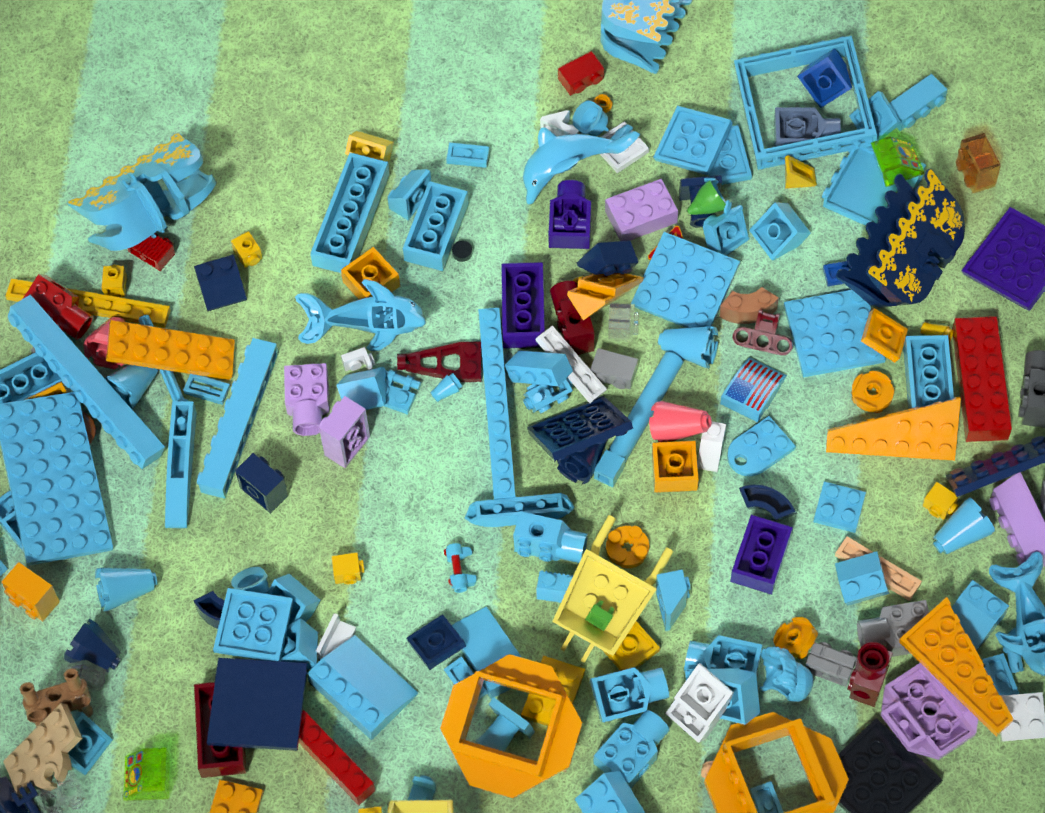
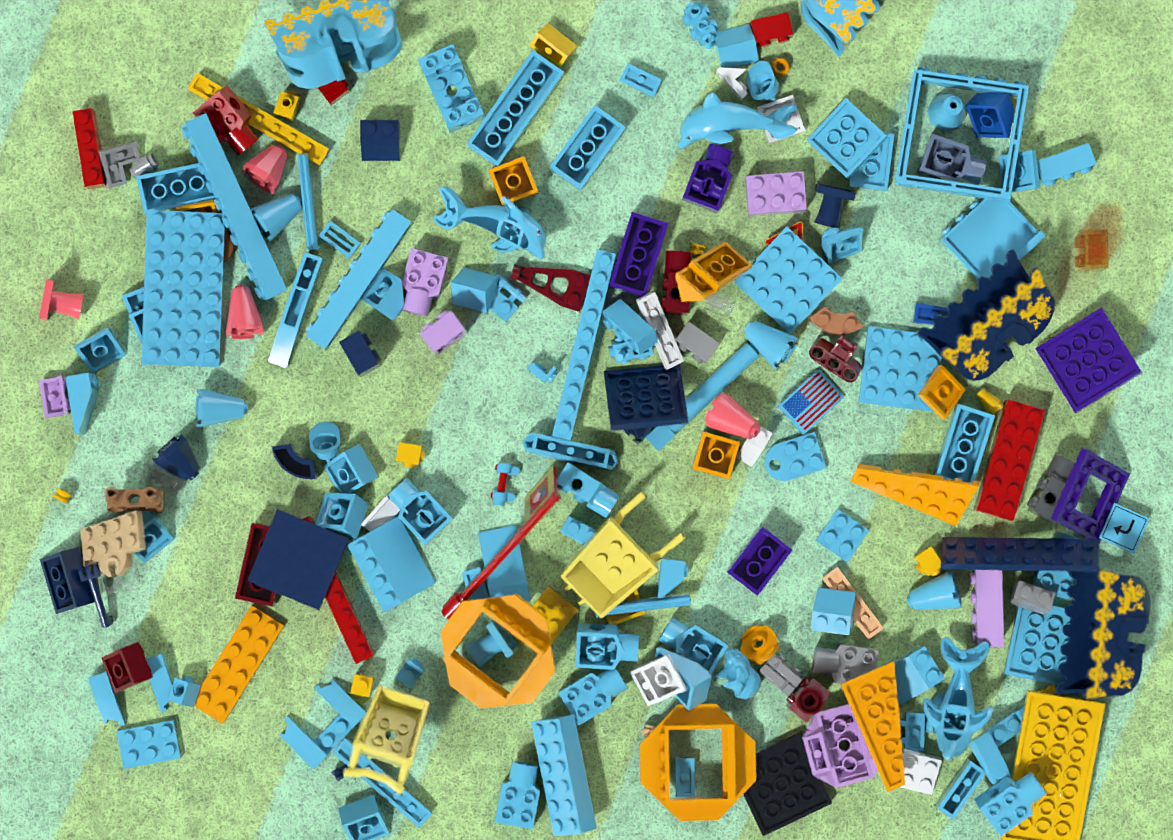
camera: 10 degrees right, 25 degrees up
(30, 592) = (138, 390): light orange brick -> none
(126, 488) = (243, 315): none -> coral cone
(147, 774) = (193, 582): clear neon green slope -> none
(170, 350) = (316, 198): light orange plate -> none
(246, 249) = (413, 114): yellow brick -> none
(253, 625) = (314, 489): medium azure plate -> none
(264, 203) = (445, 70): none -> medium azure plate
(272, 421) = (386, 294): none -> medium azure slope
(357, 358) = (475, 257): white bracket -> none
(377, 620) = (419, 511): none -> medium azure brick
(408, 195) = (574, 105): medium azure slope -> none
(436, 642) = (463, 546): dark blue plate -> none
(447, 387) = (547, 310): medium azure cone -> none
(461, 448) = (538, 370): none -> medium azure bracket
(462, 251) = (604, 177): black tile -> none
(497, 572) = (537, 504): none -> red flag
(510, 87) = (701, 26): none -> medium azure brick
(552, 98) = (736, 47): none -> medium azure slope
(600, 617) = (602, 578): bright green tile -> none
(609, 258) = (727, 242): dark blue slope -> none
(631, 535) = (659, 519): light orange plate -> none
(653, 637) = (651, 604): none -> medium azure axle
(709, 200) = (836, 214): bright green hat -> none
(768, 499) = (783, 513): dark blue brick -> none
(779, 230) = (891, 255): medium azure slope -> none
(782, 88) = (947, 112): none -> medium azure cone
(798, 174) = (930, 203): yellow slope -> none
(868, 402) = (910, 449): light orange plate -> none
(896, 157) = (1021, 224): clear neon green slope -> none

